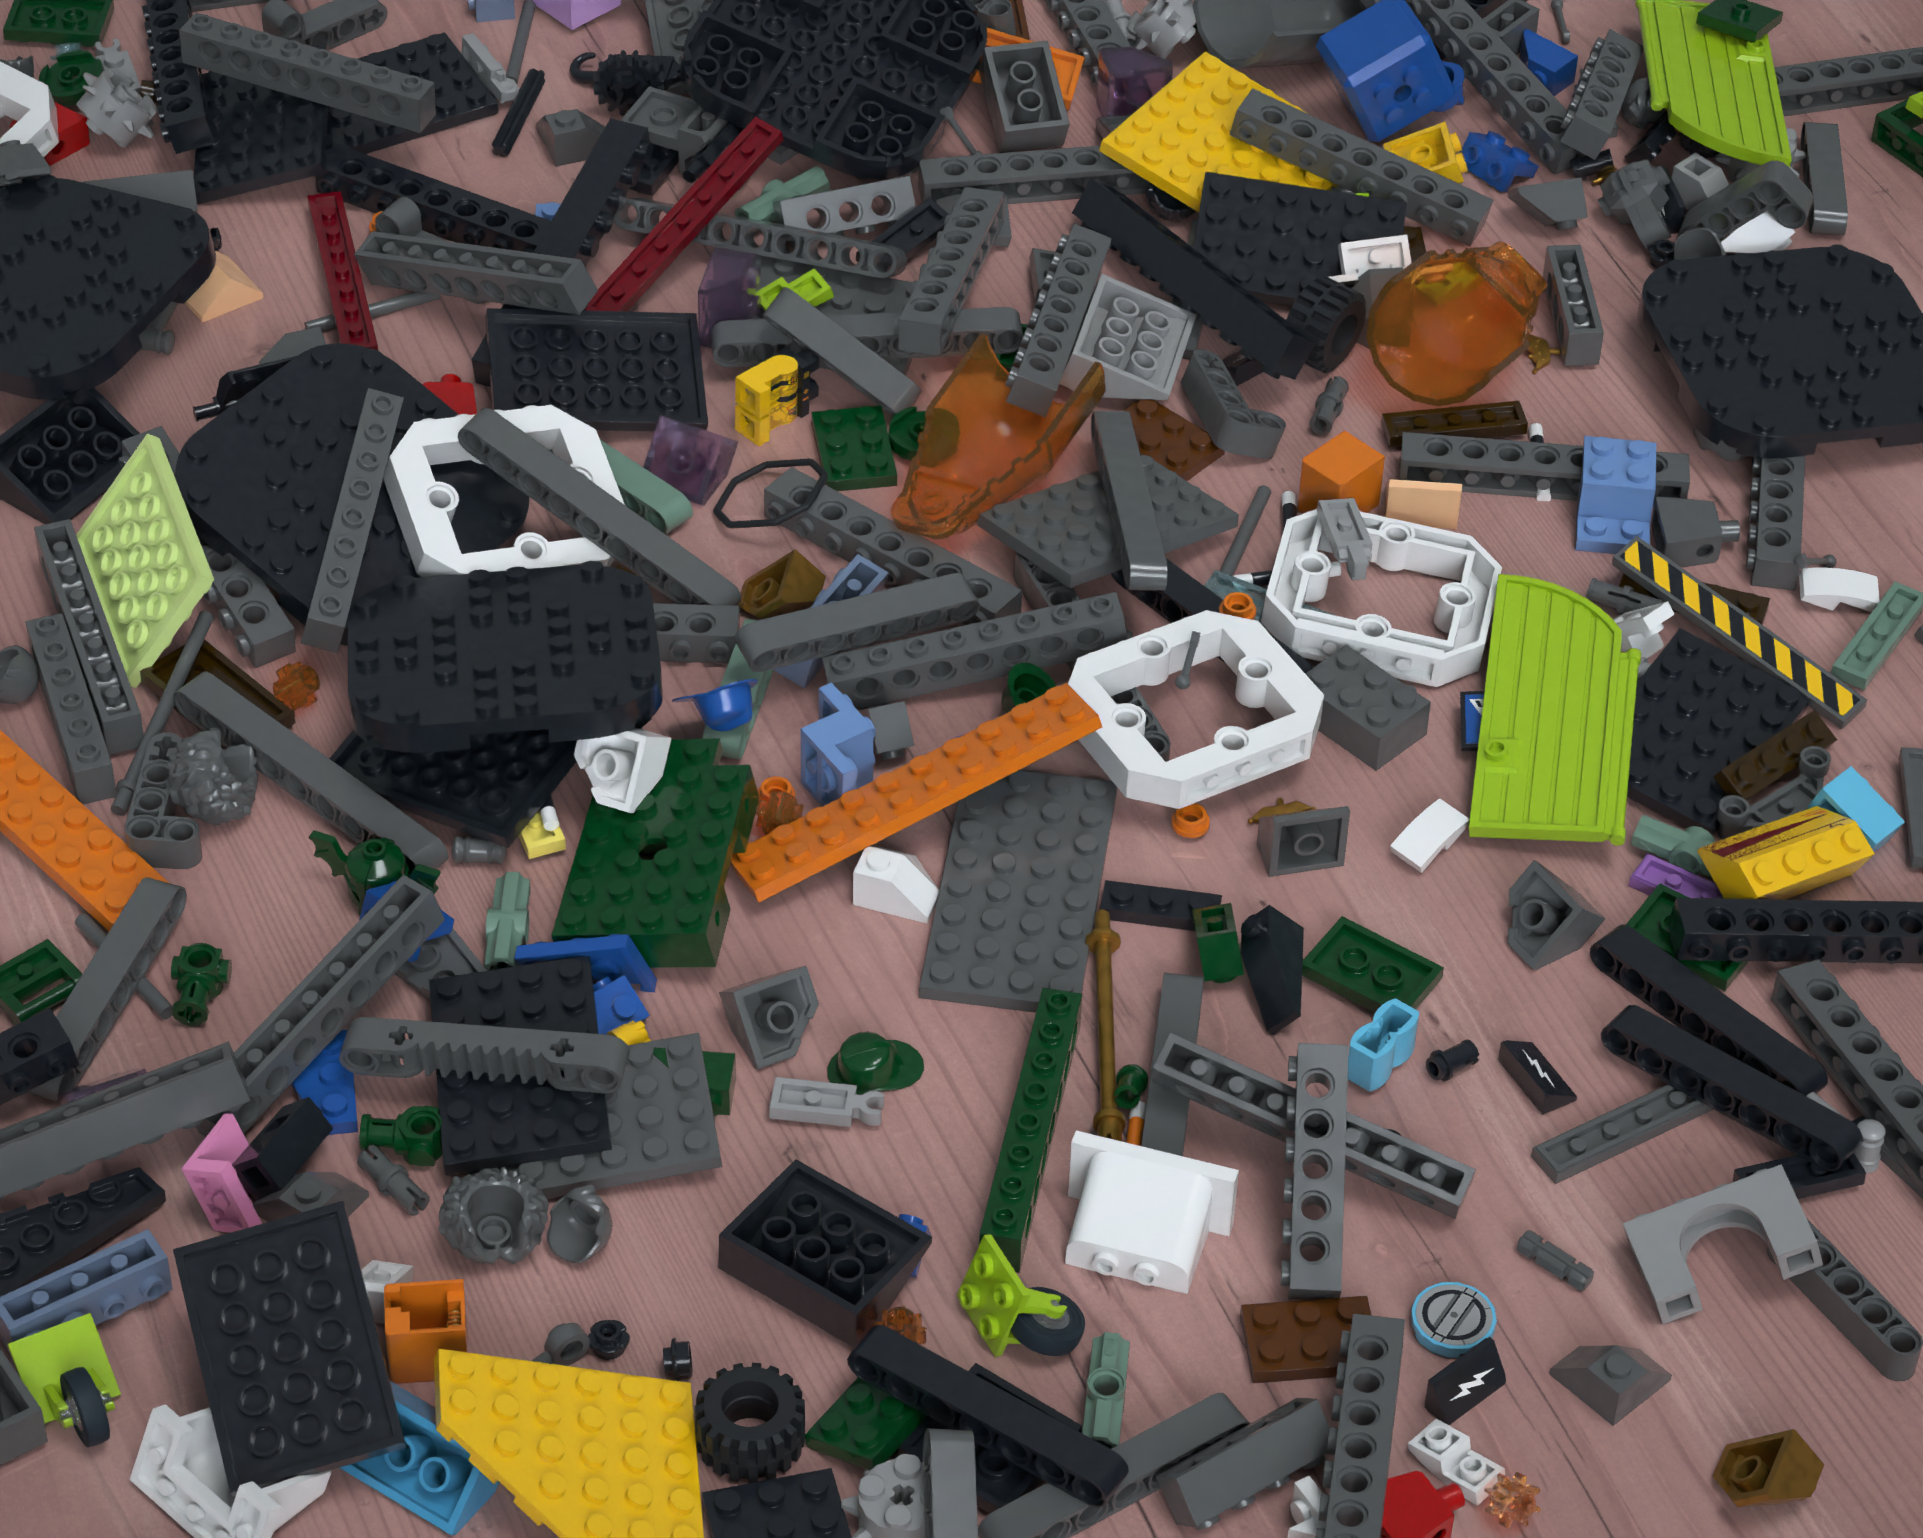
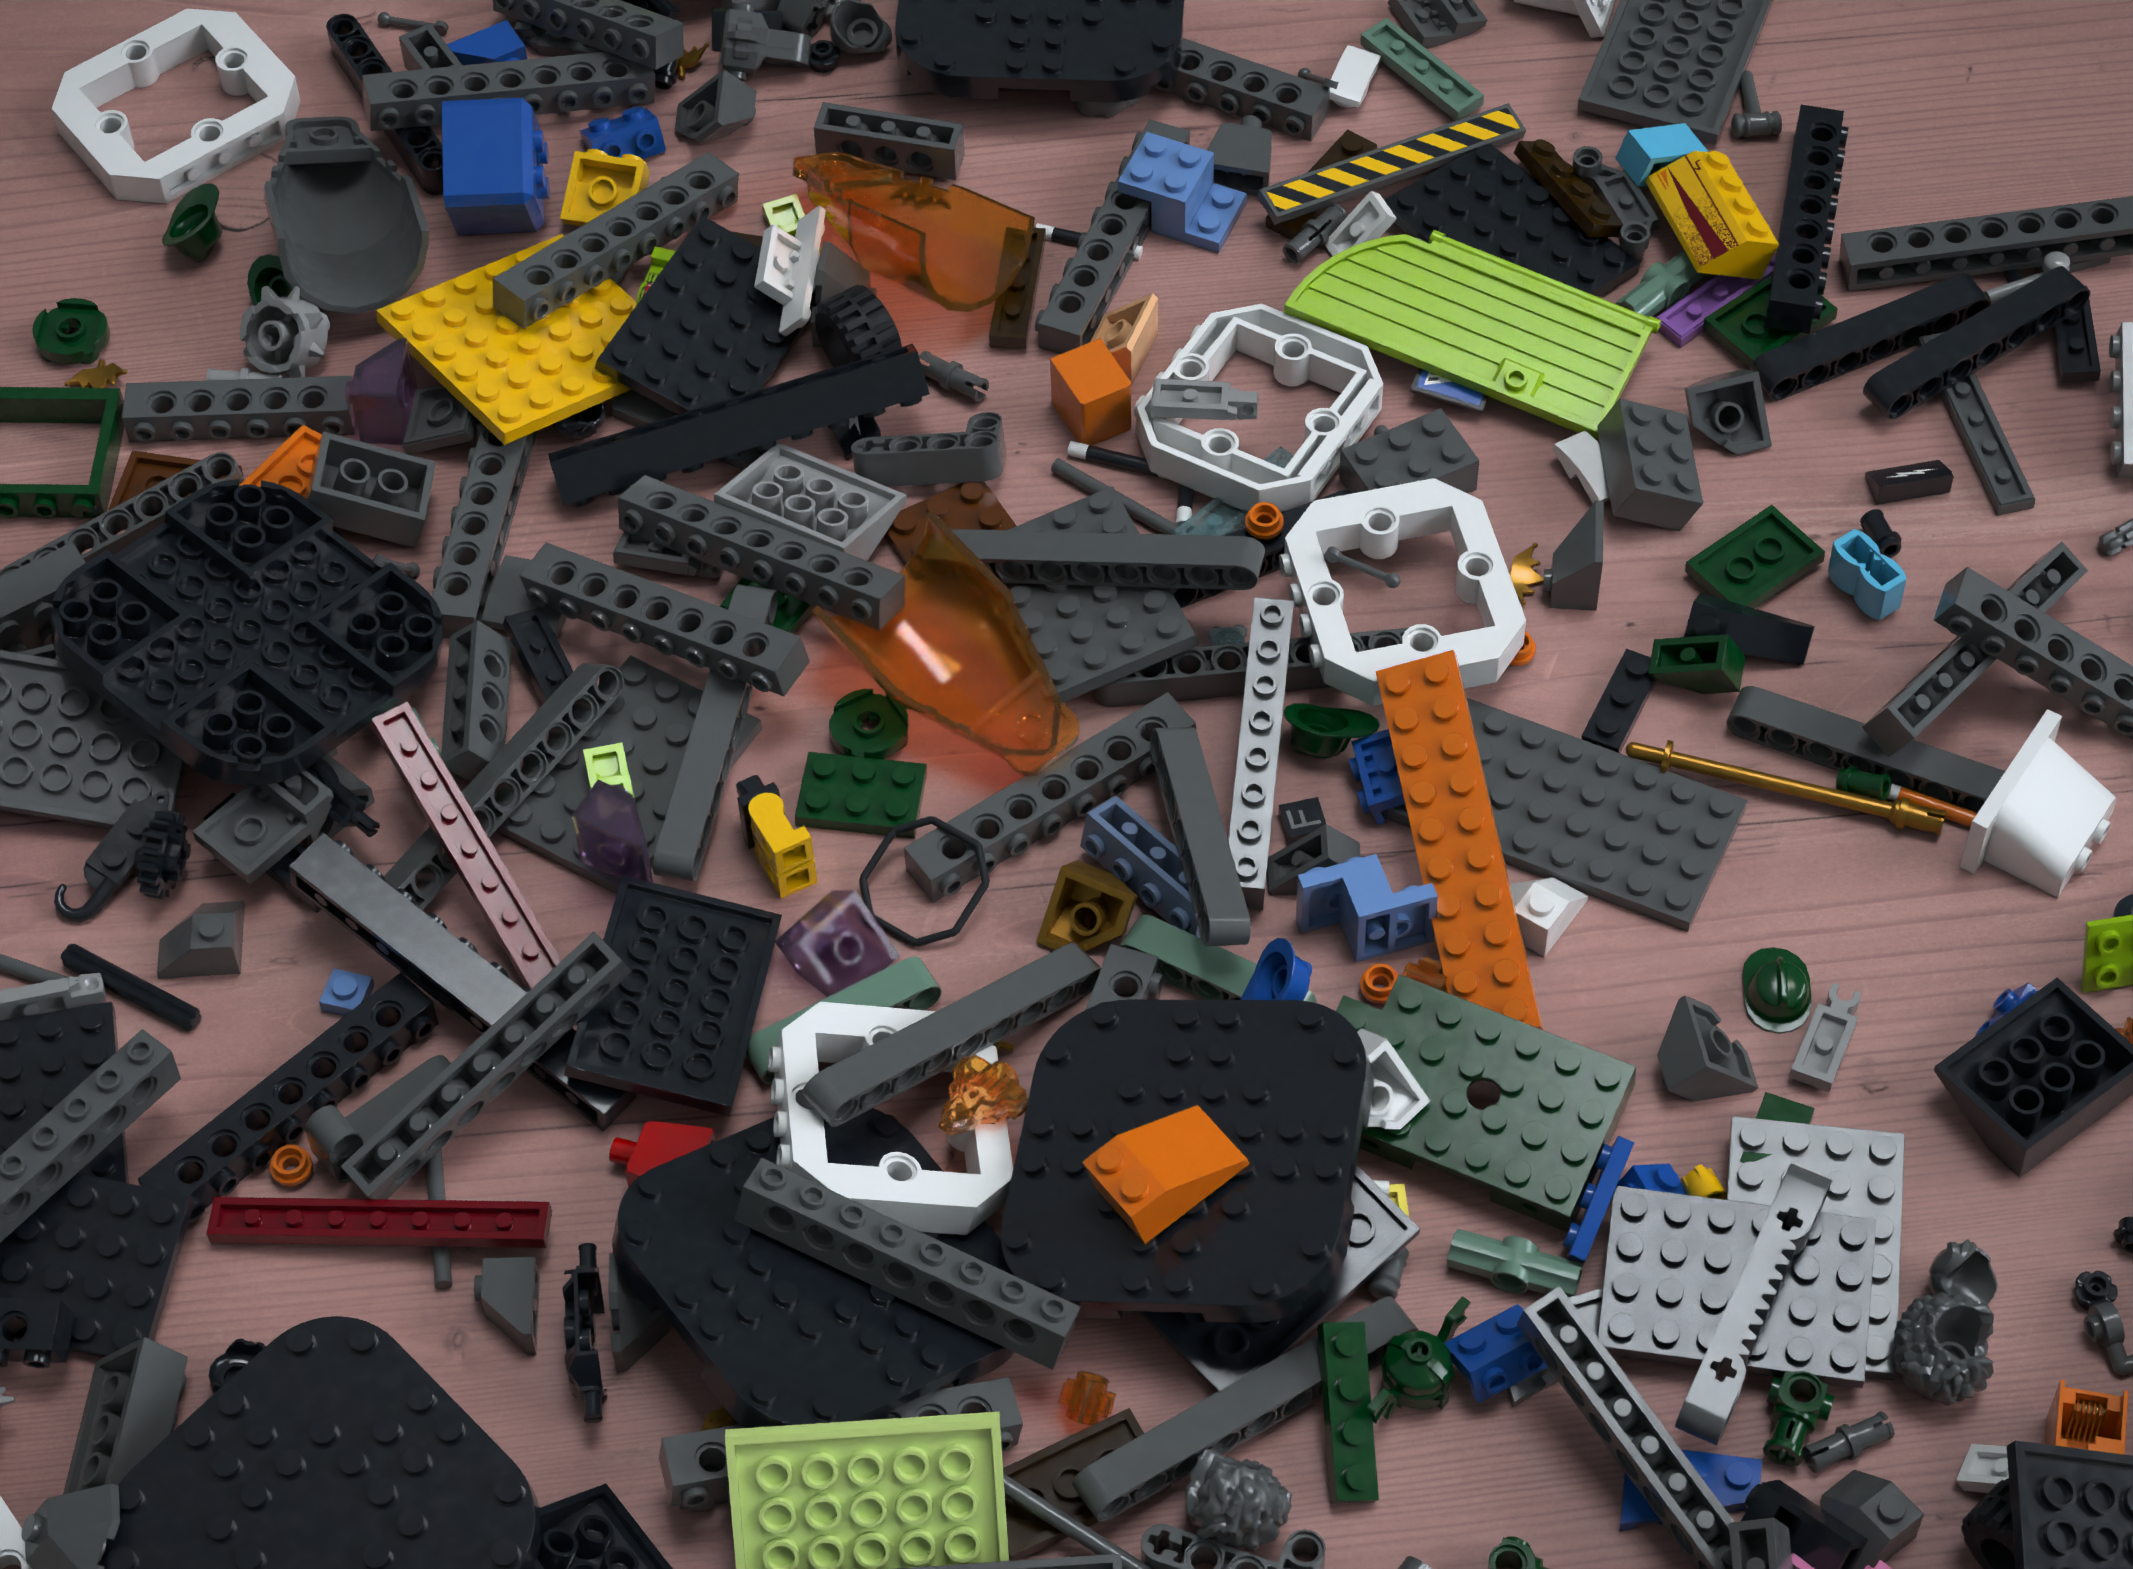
camera: 70 degrees left, 10 degrees up
(343, 820) = (1346, 1420): none -> dark green plate
(461, 618) = (1163, 1169): none -> orange slope
(533, 537) = (981, 1095): none -> clear orange rock
(841, 352) = (752, 753): dark grey beam -> none
(935, 717) = (1301, 818): none -> black tile
(1032, 1123) = (1905, 874): dark green brick -> none
(1440, 862) = (1649, 464): none -> dark grey brick

